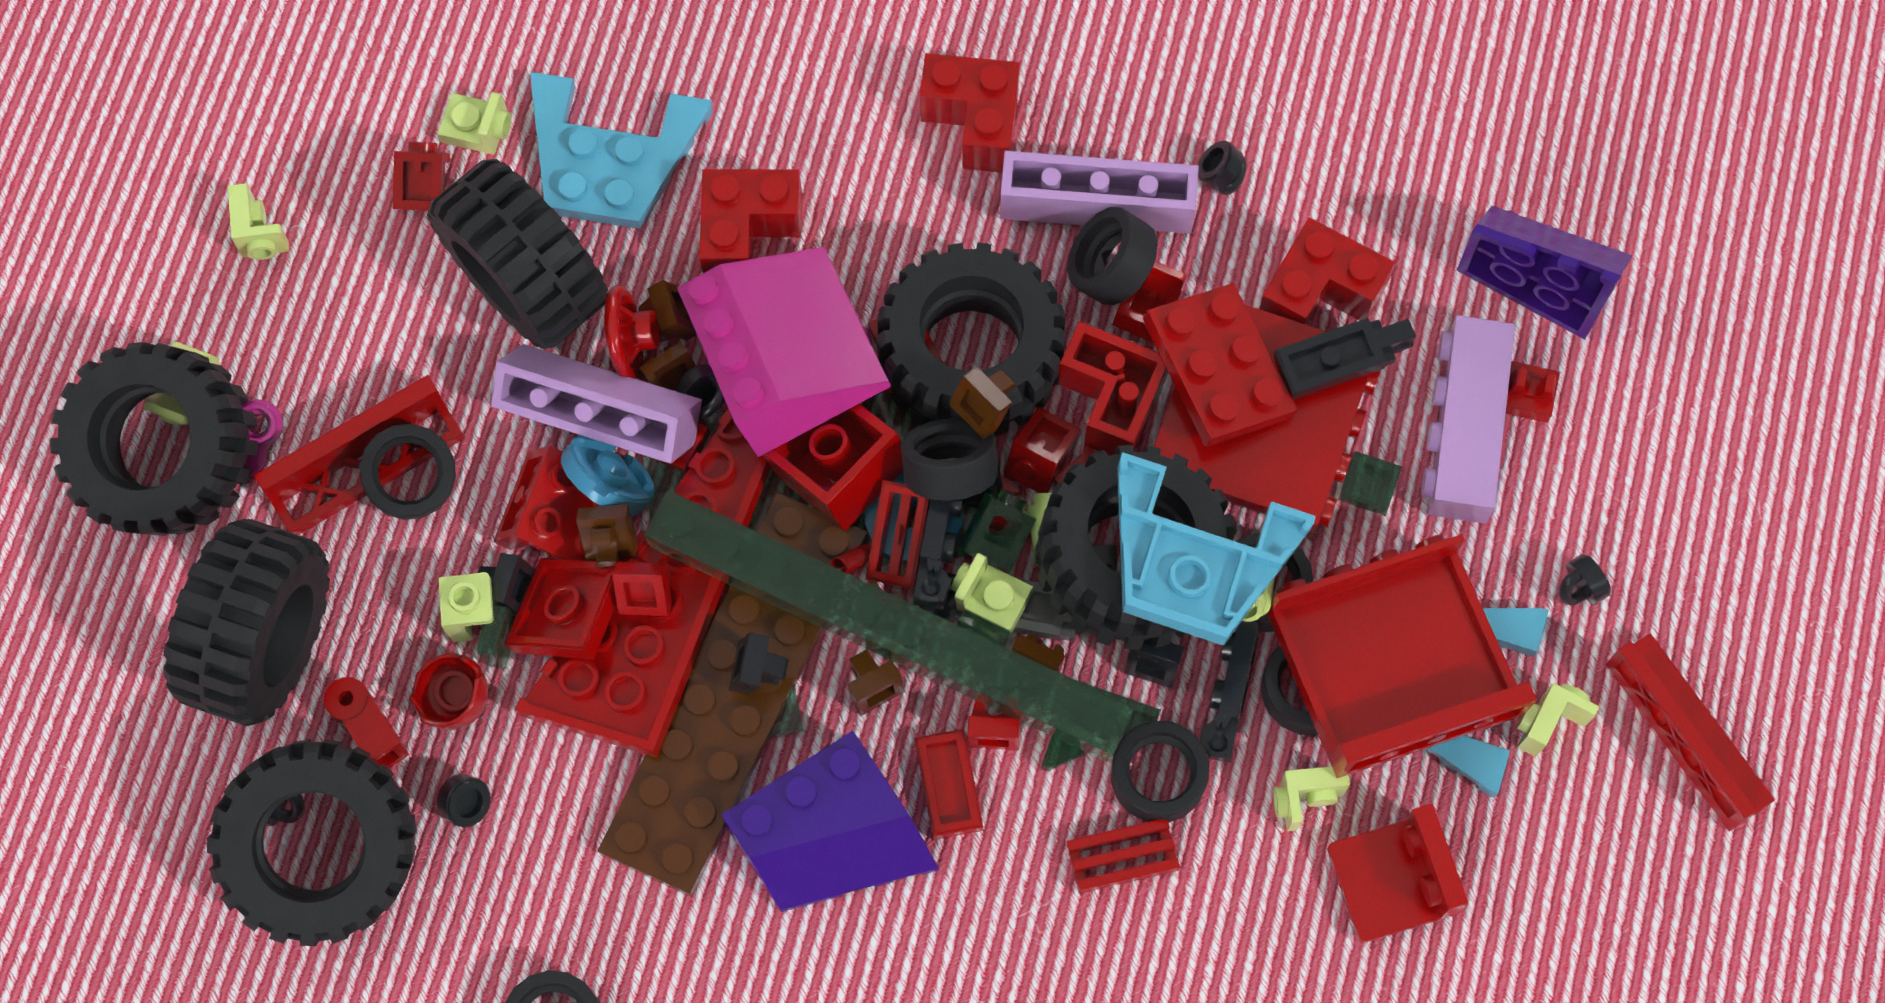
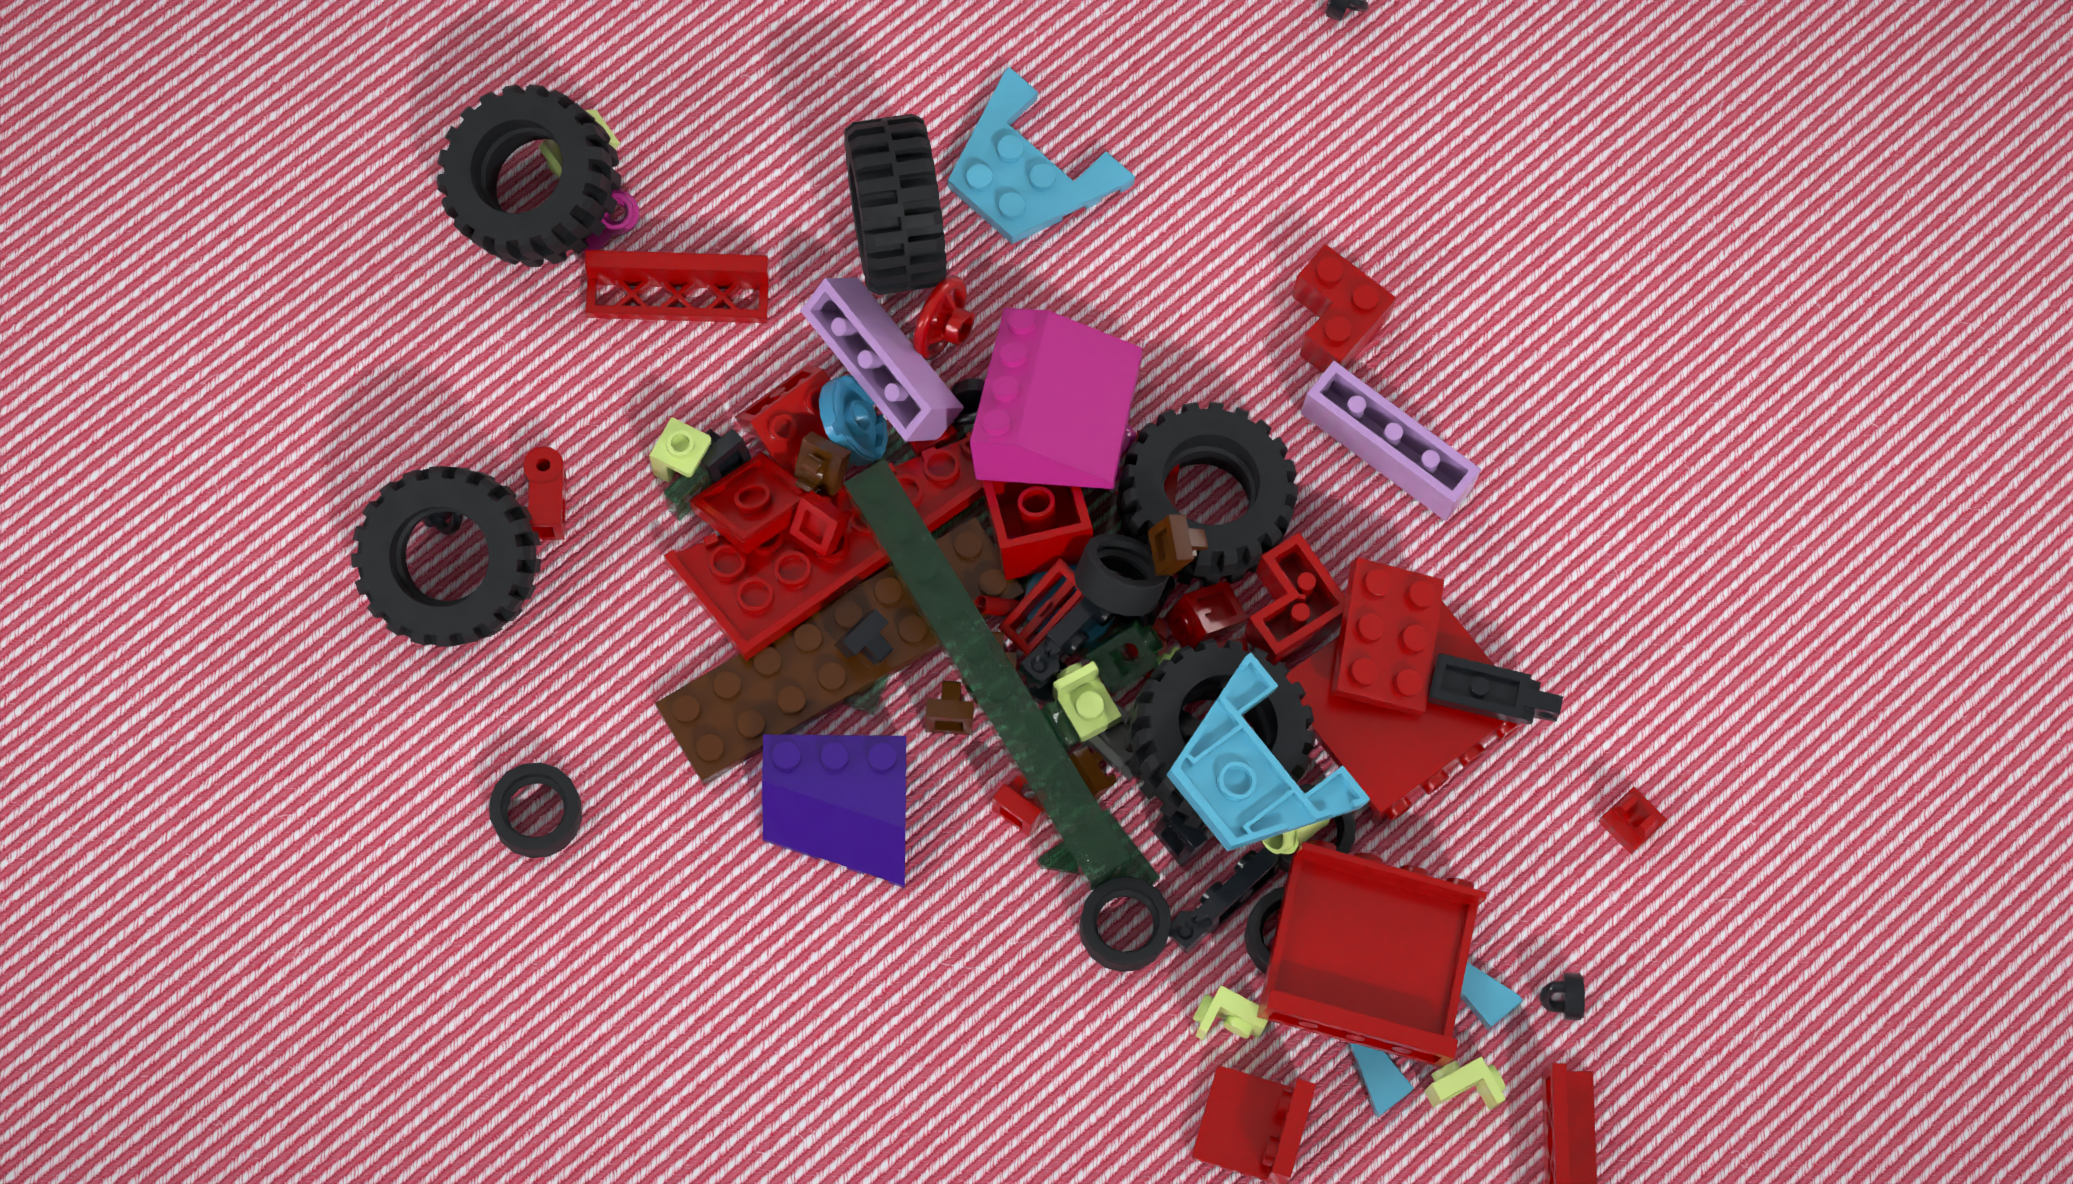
camera: 25 degrees right, 0 degrees up
(246, 621) = (505, 358): black tyre -> none
(250, 226) = (710, 54): yellowish green bracket -> none
(399, 435) = (693, 288): black tyre -> none
(418, 176) = (866, 94): red bracket -> none
(450, 691) = (624, 510): red hair -> none
(463, 800) = (580, 599): black tile -> none
(475, 122) = (938, 80): yellowish green bracket -> none
(668, 366) = (956, 366): reddish brown tile -> none
(669, 310) = (986, 321): reddish brown tile -> none
(746, 206) = (1101, 277): red brick -> none
(948, 784) = (956, 827): red tile -> none
(1116, 836) = (1057, 951): red tile -> none
(1129, 266) = (1364, 498): black tyre -> none
(1159, 288) = (1381, 544): red bracket -> none
(1222, 167) = (1507, 485): black tile -> none
(1330, 270) = (1530, 615): red brick -> none
(1370, 483) = (1451, 809): clear green tile -> none
(1470, 419) = (1566, 809): lavender brick -> none
(1543, 268) = (1709, 727): dark purple wedge -> none

